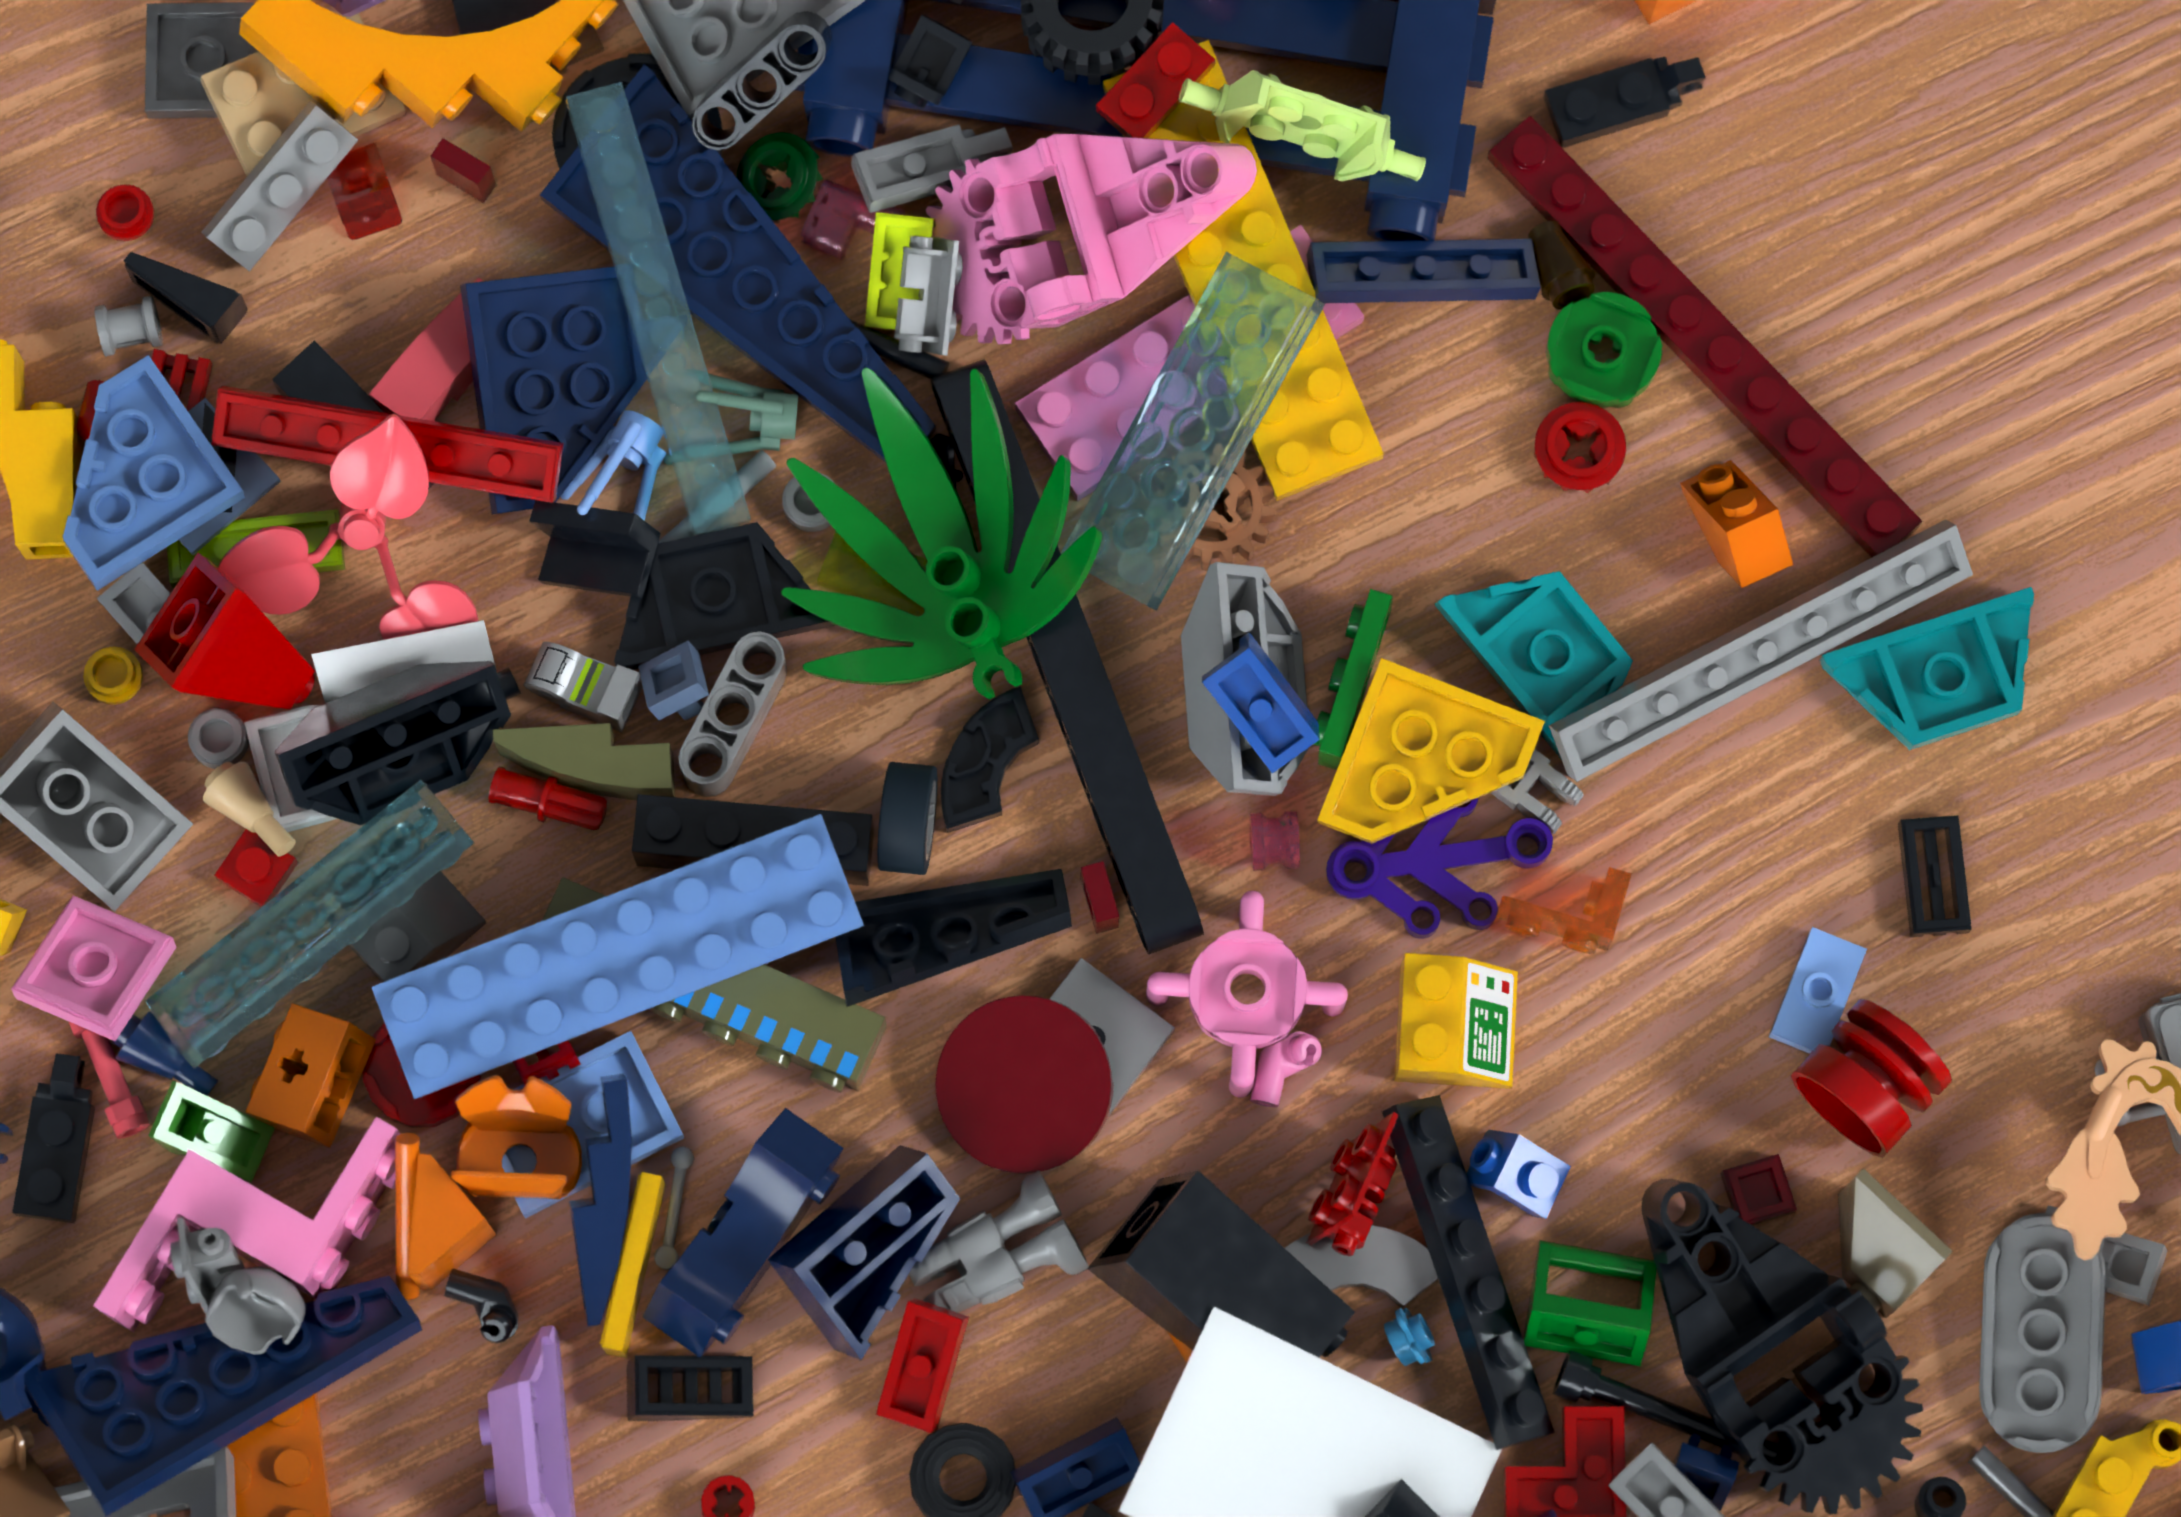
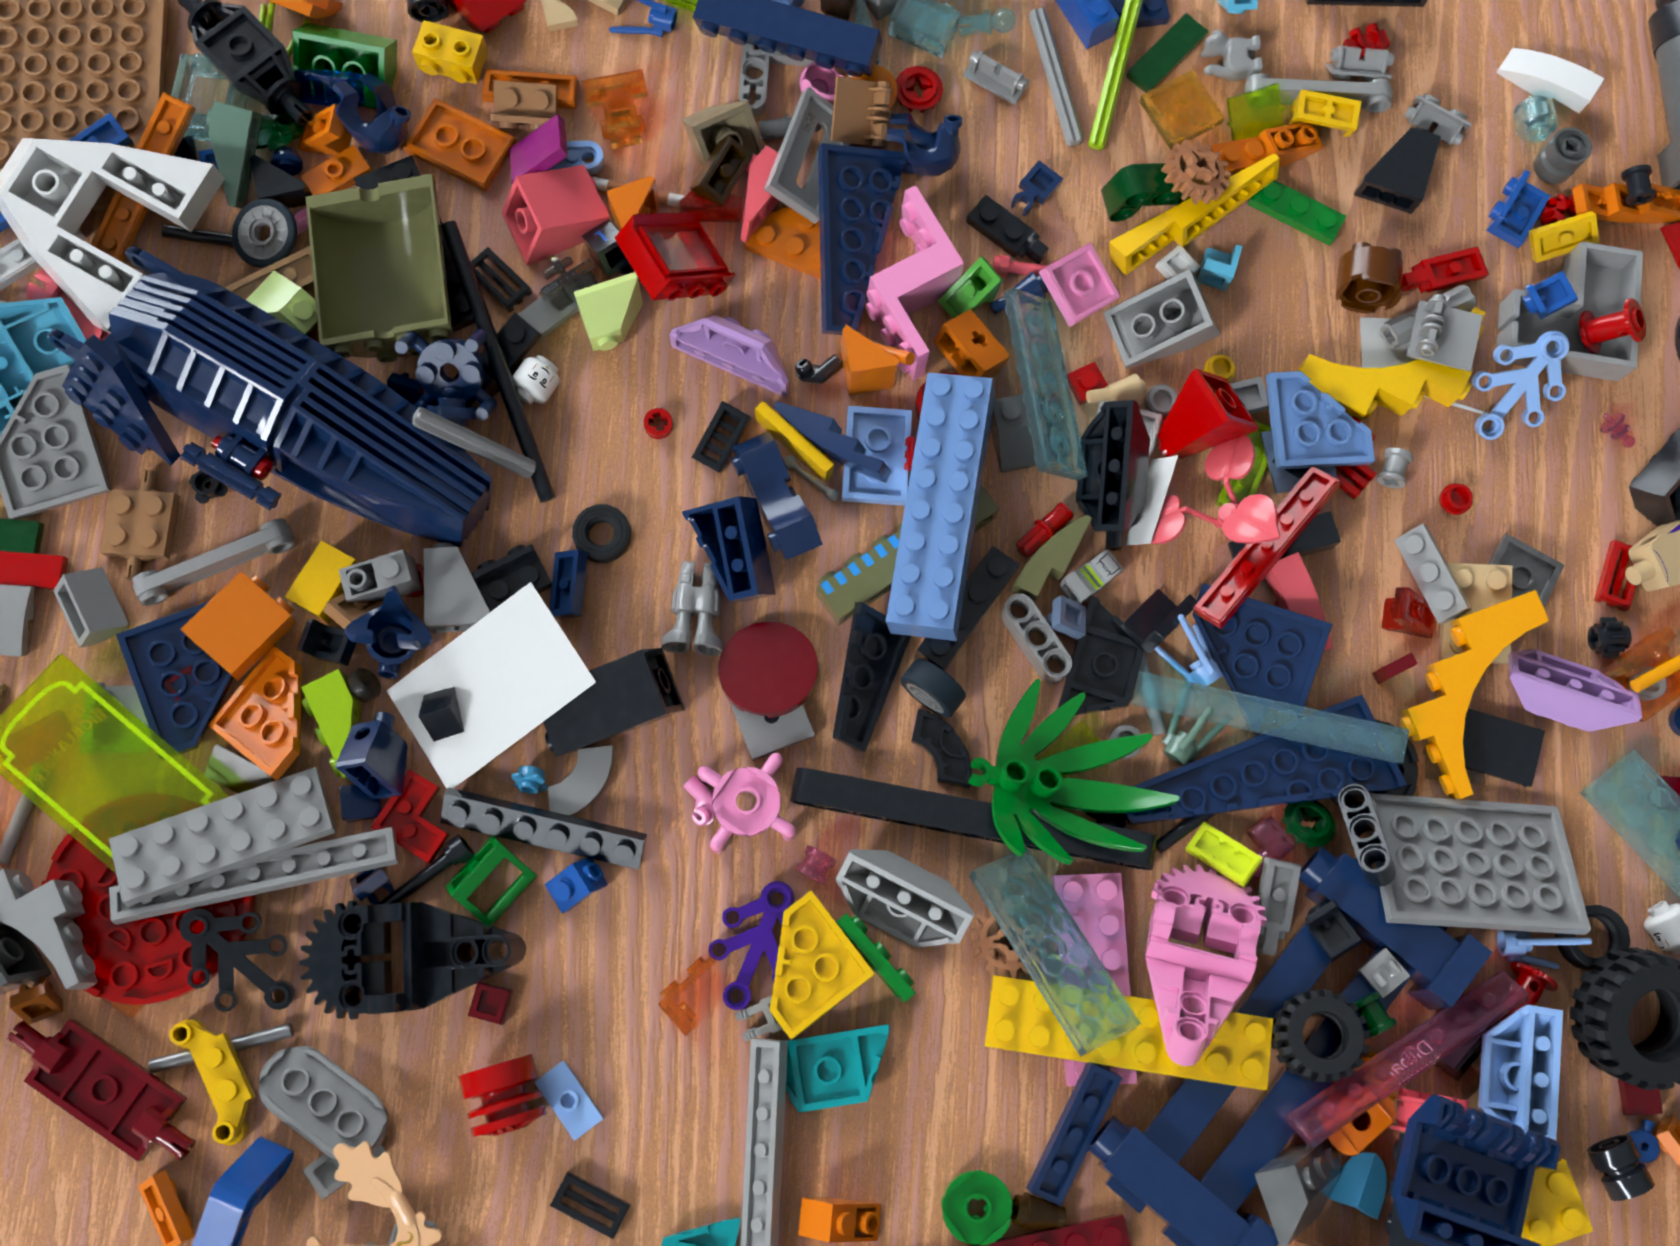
camera: 115 degrees right, 0 degrees up
(200, 302) = (1388, 506): black slope -> none
(203, 1260) = (904, 243): light grey hinge -> none
(255, 1309) = (873, 256): light grey hair -> none
(511, 1118) = (888, 401): orange piece -> none
(922, 1365) = (663, 542): red plate -> none
(935, 270) = (1214, 867): light grey hinge -> none
(1099, 897) = (838, 760): dark red tile -> none
(1153, 84) = (1256, 1043): red plate -> none
(1262, 704) = (884, 894): blue panel -> none
(1306, 119) = (1193, 1113): yellowish green plate -> none
(1360, 1180) = (628, 804): red hinge -> none
(1455, 1022) = (668, 900): yellow slope -> none
(1581, 421) = (944, 1169): red gear -> none
(1884, 1245) = (413, 1043): dark tan slope -> none

